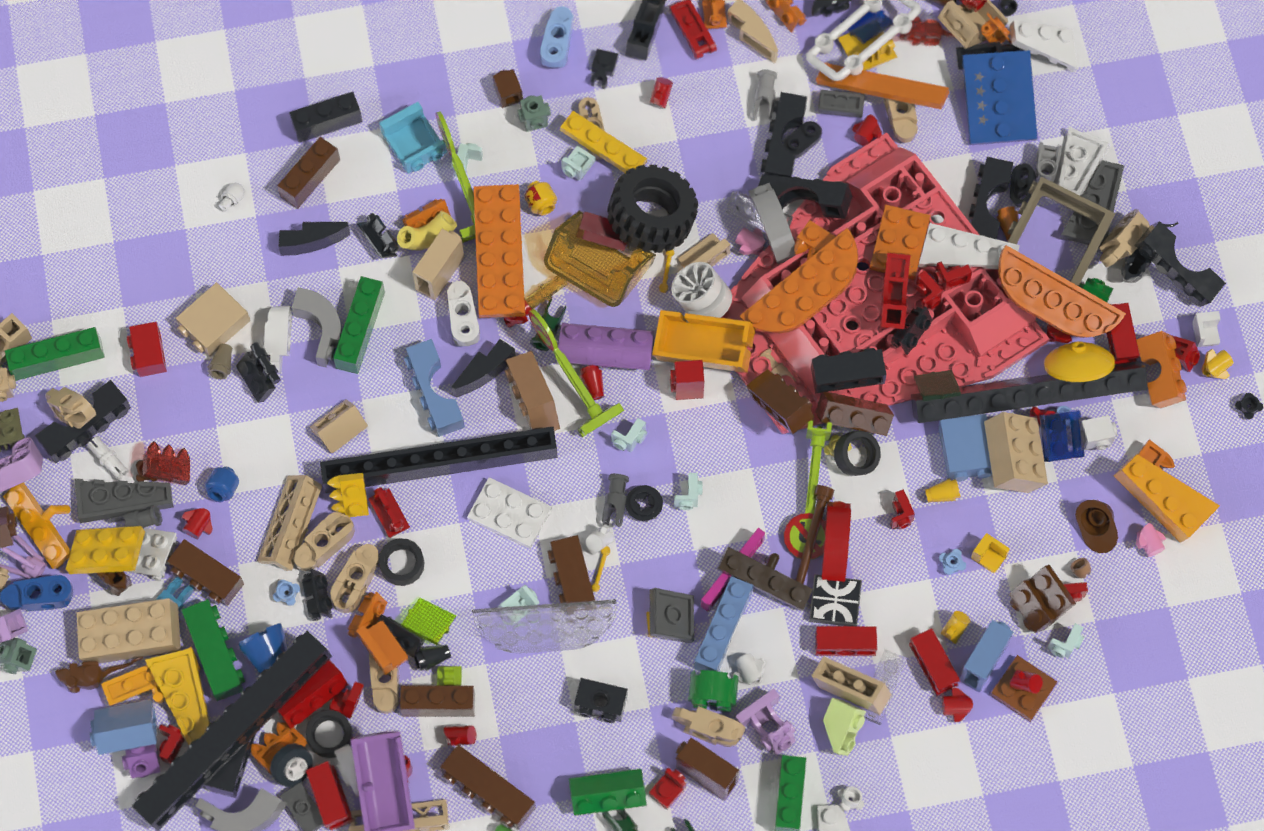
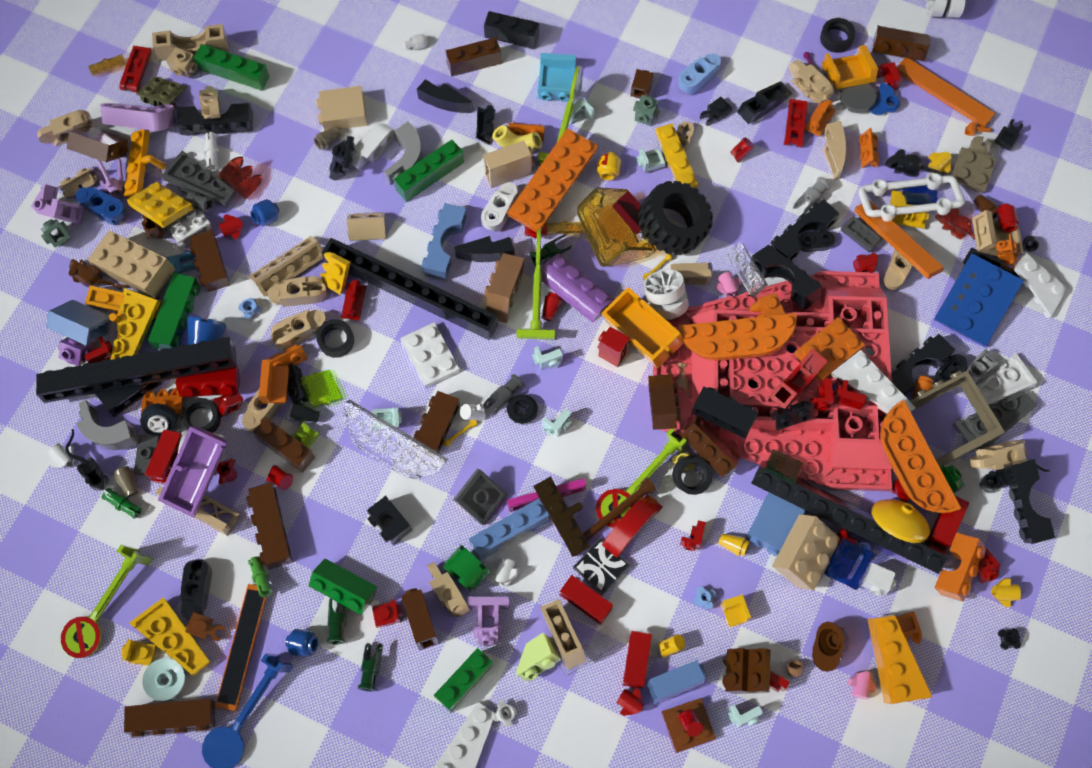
camera: 35 degrees right, 0 degrees up
(147, 349) = (288, 100): red brick -> none
(315, 584) = (269, 317): black hinge -> none
(773, 222) = (750, 278): light grey arch -> none
(1206, 328) = (1016, 561): white panel -> none

